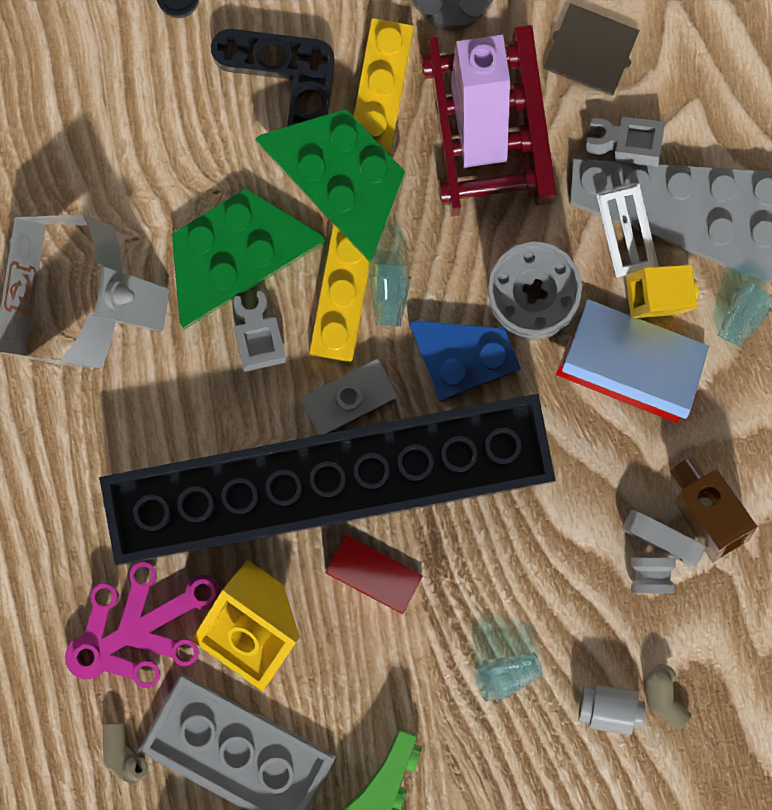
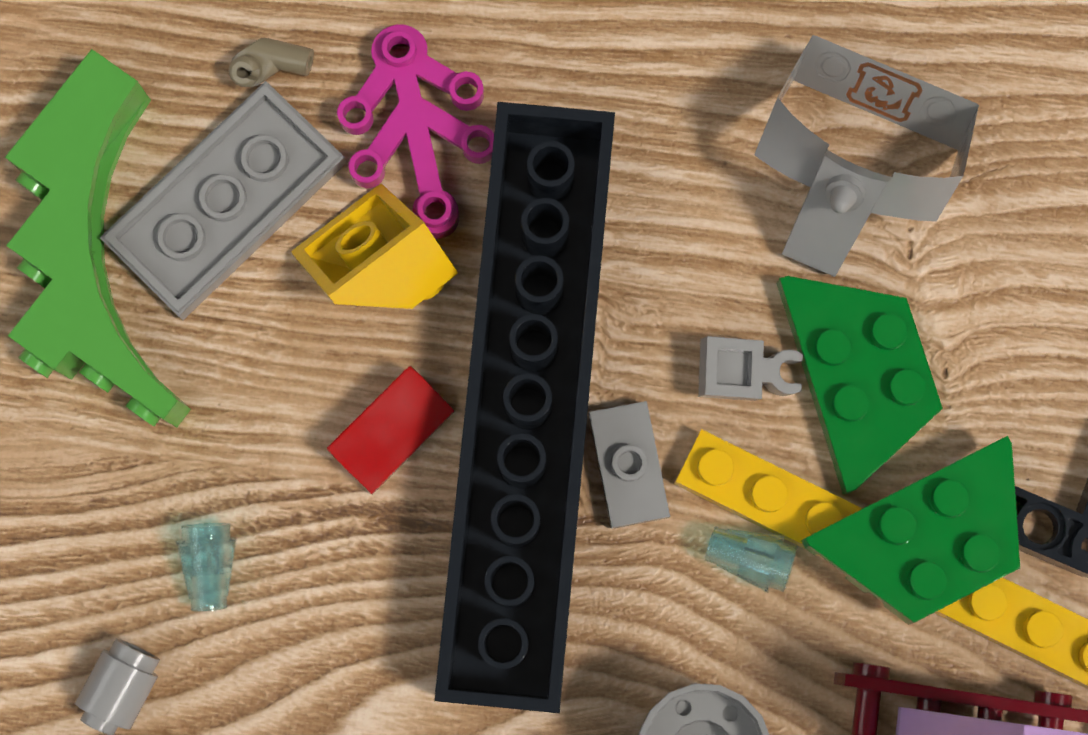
camera: 110 degrees right, 5 degrees down
(463, 355) = (642, 632): blue wing -> none

